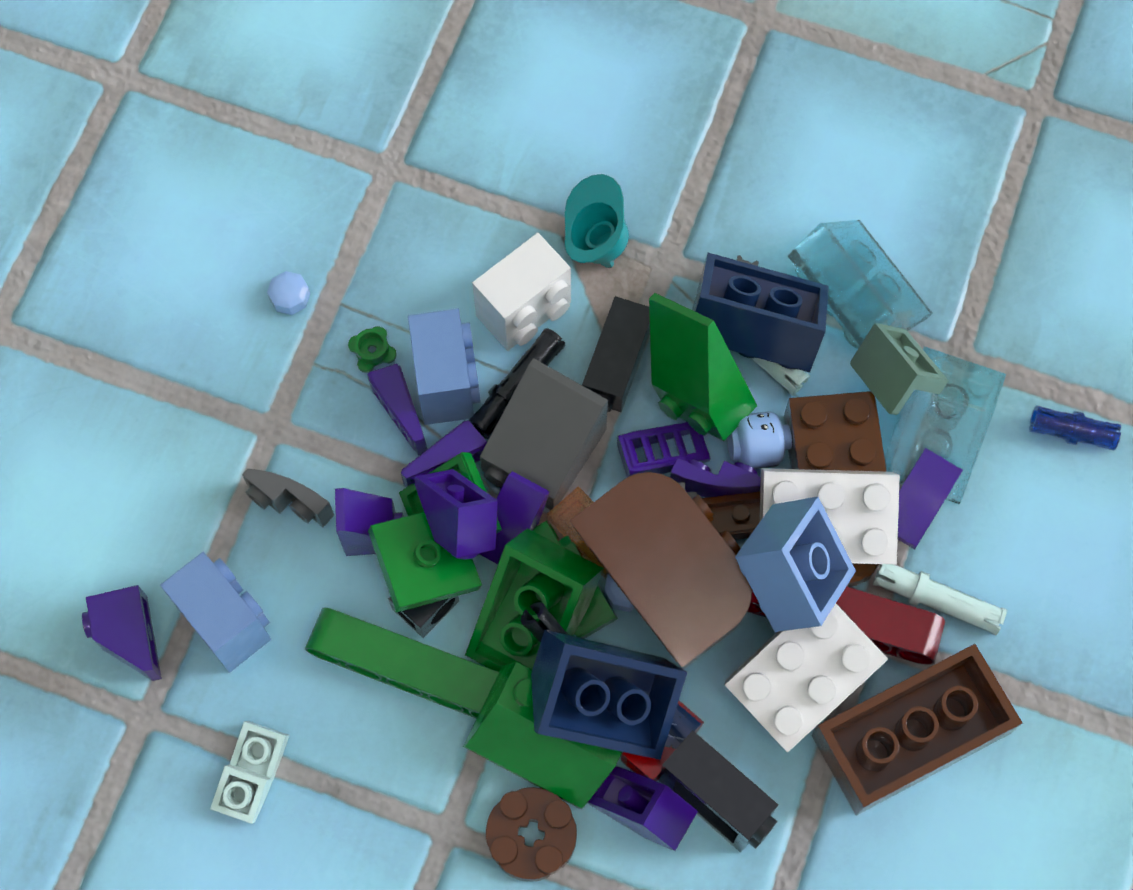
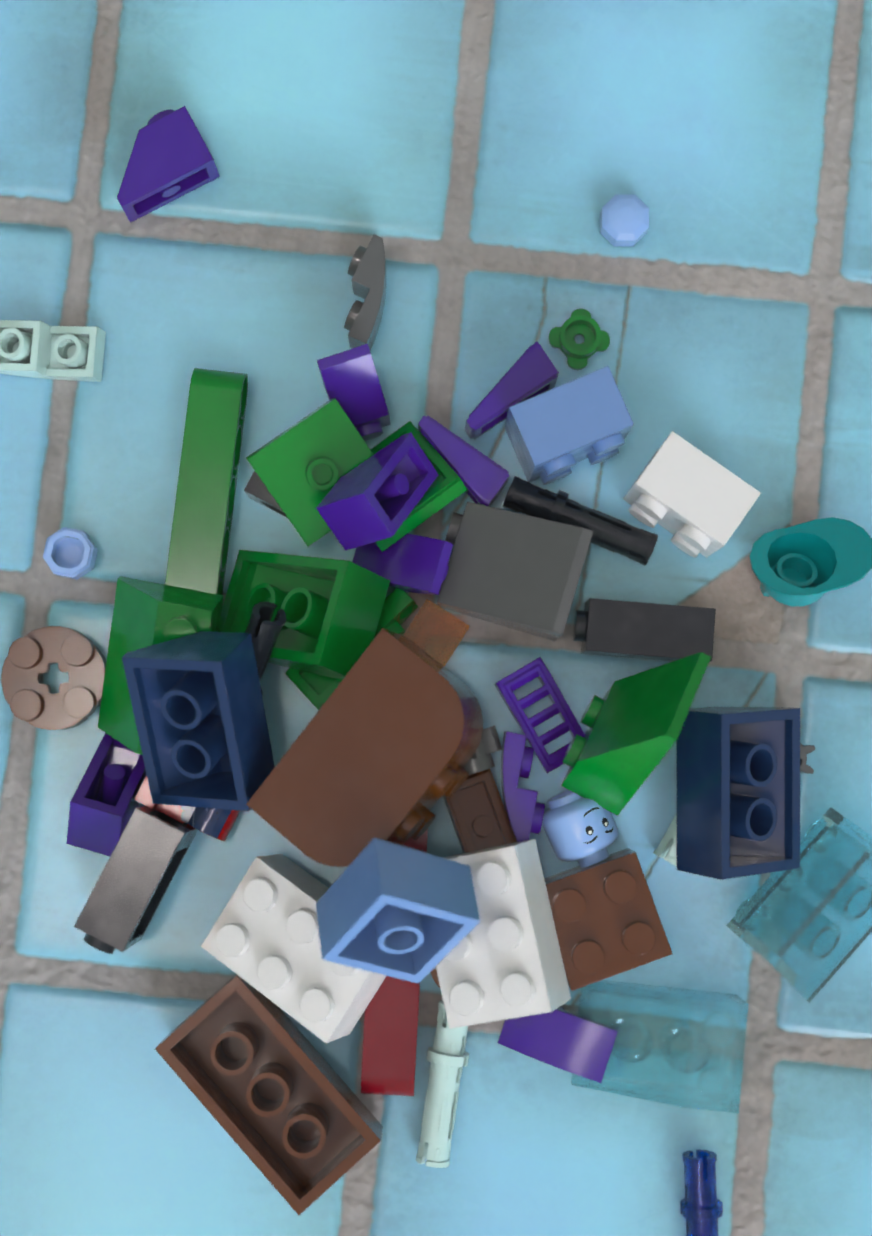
camera: 70 degrees right, 15 degrees up
(212, 605) = (204, 256): medium blue brick -> none
(429, 793) = (70, 553): none -> light blue tile
(895, 367) = (706, 976): sand green panel -> none

